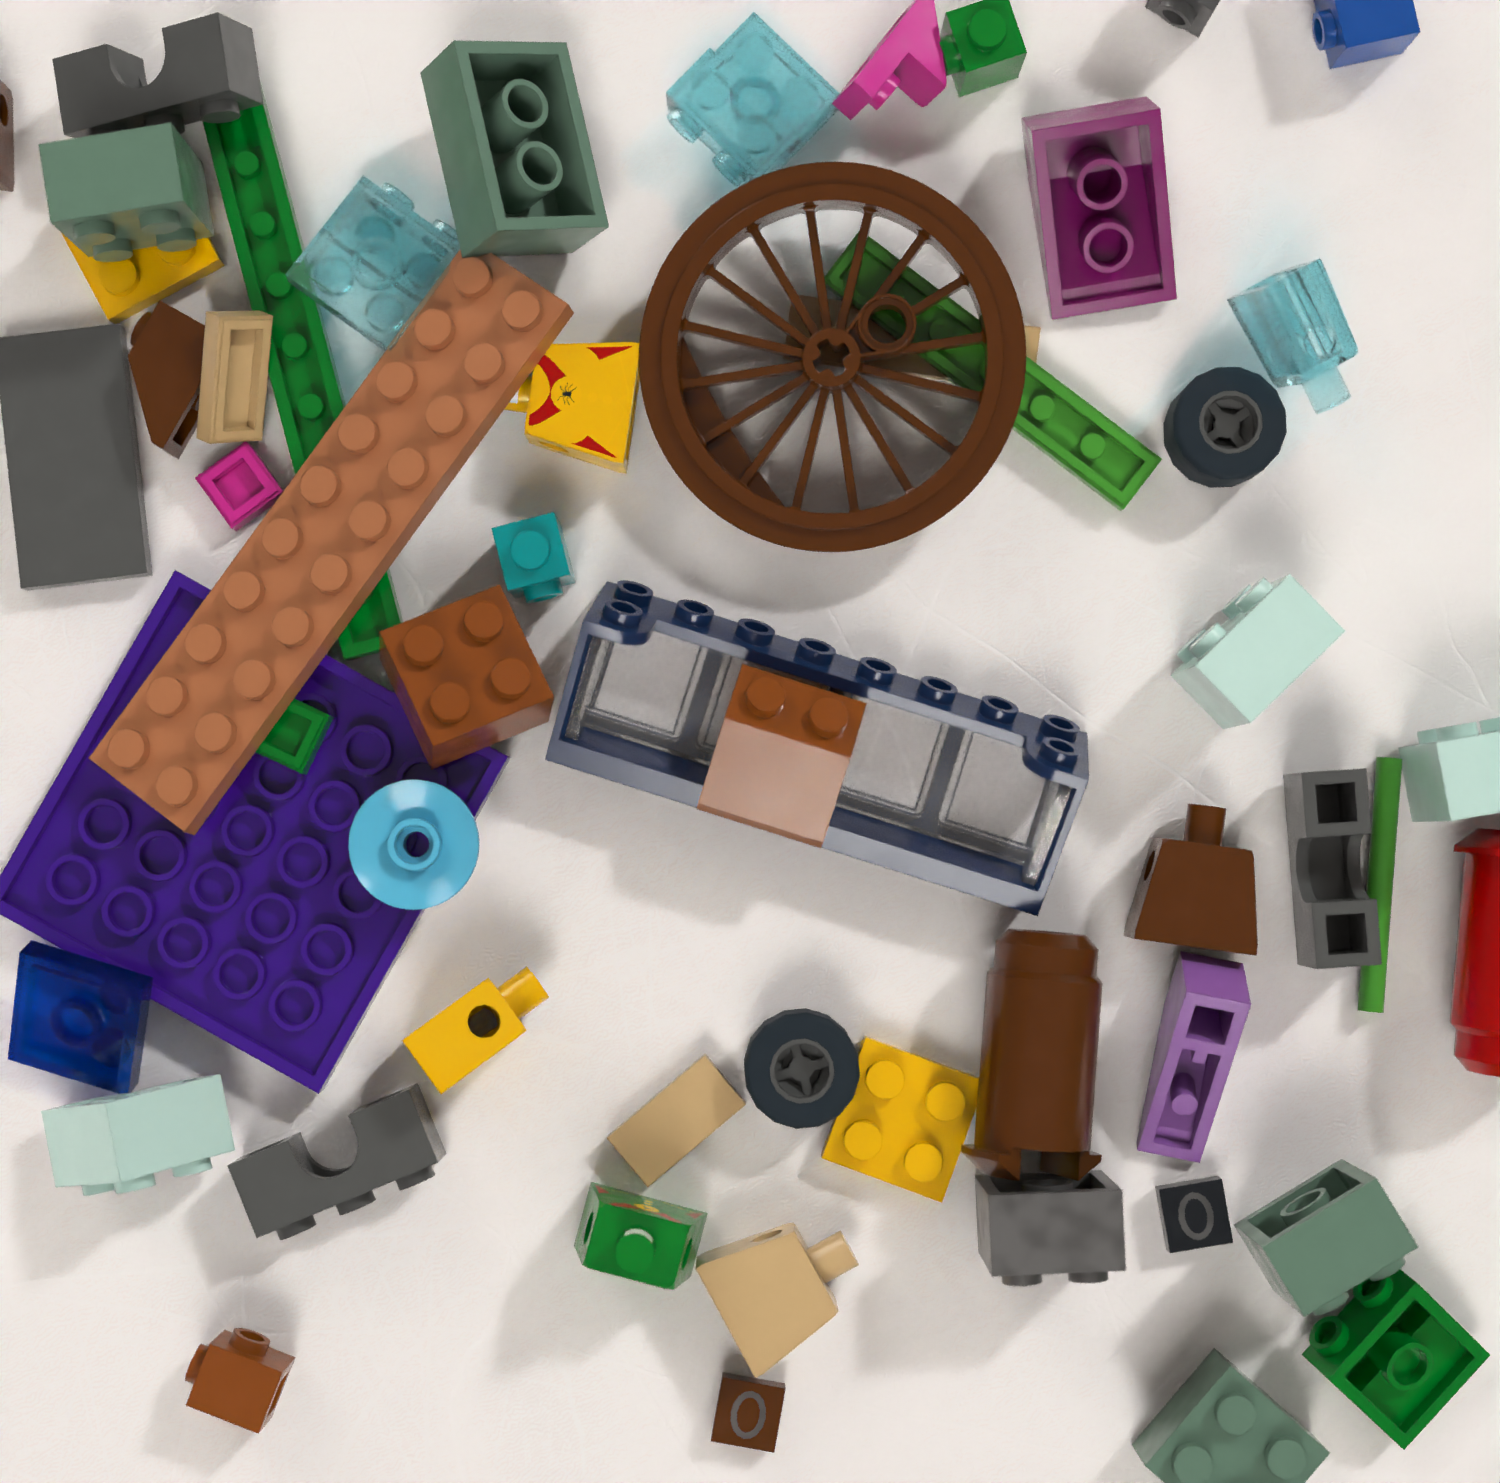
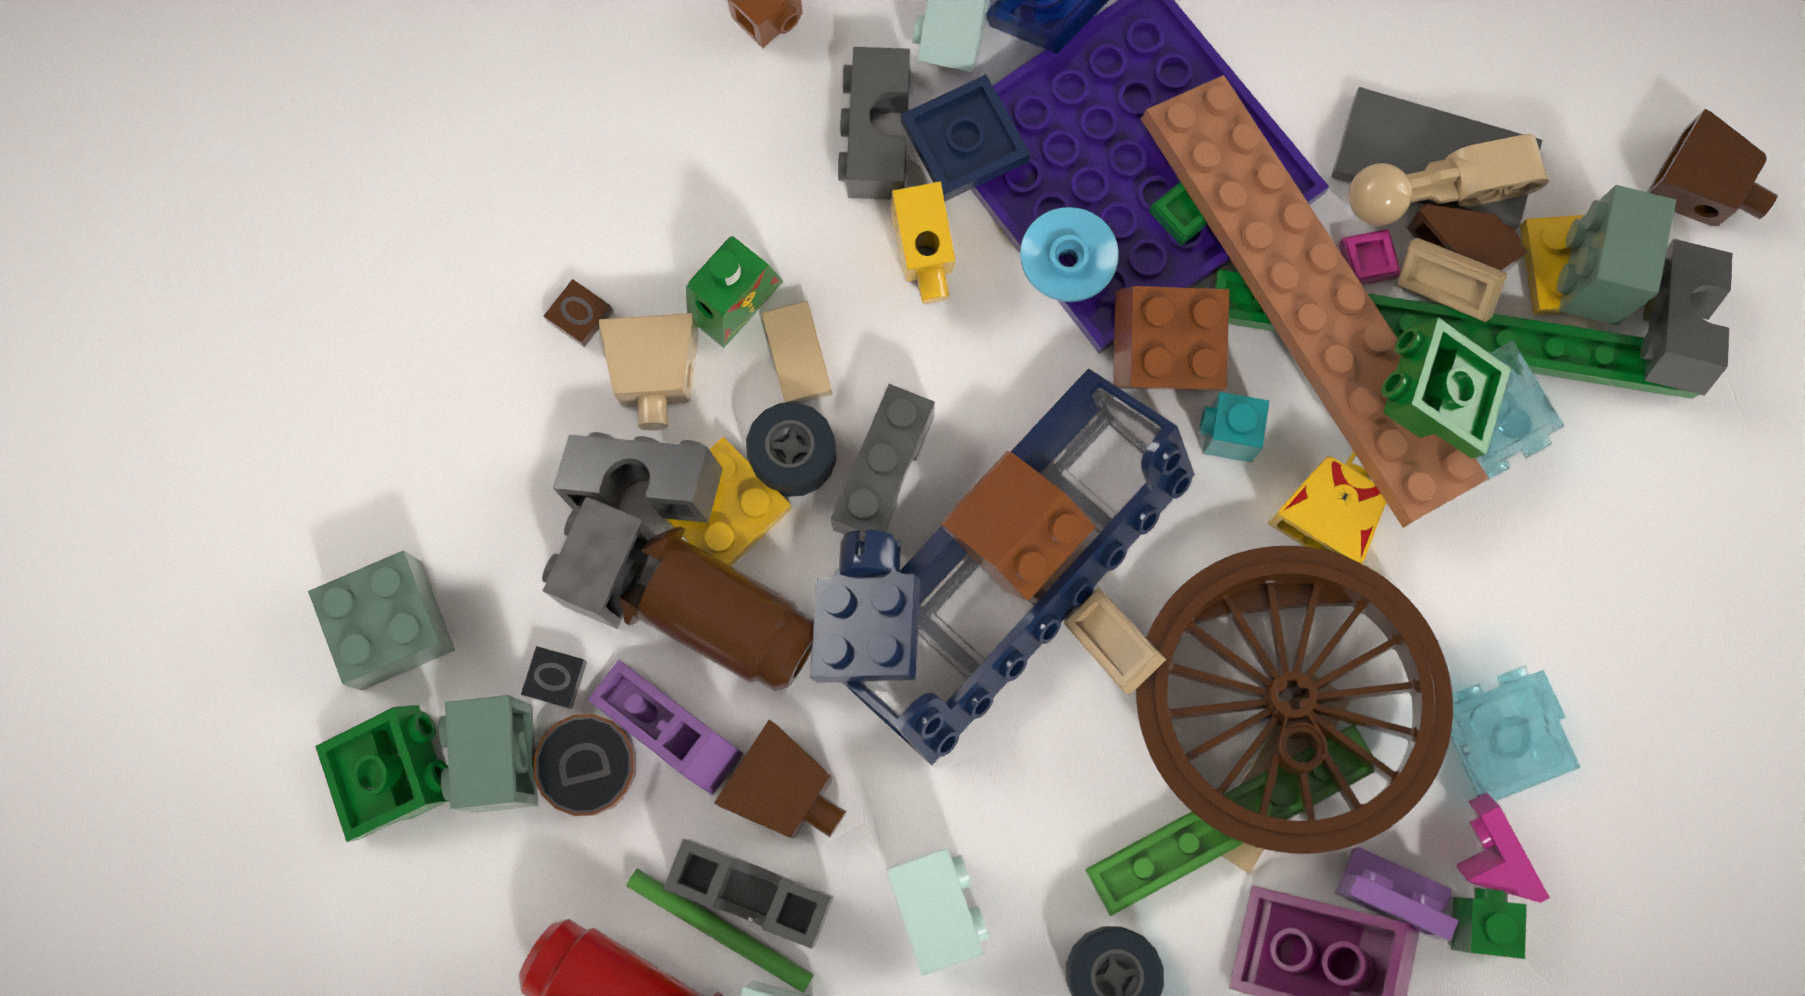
camera: 120 degrees right, 10 degrees down
(156, 499) = (1468, 175): none -> tan beam
(316, 1041) = (965, 137): none -> dark blue plate
(390, 327) = (1445, 387): none -> green plate
(513, 148) = (1544, 538): sand green brick -> none
(773, 949) = (883, 462): none -> dark grey arch
(857, 587) = (1114, 641): none -> tan tile
(934, 1281) = (603, 468): none -> dark grey arch
(967, 882) = (866, 614): none -> plate
(993, 156) = (1397, 893): none -> medium lavender bracket
(1275, 1128) = (584, 765): none -> black tile

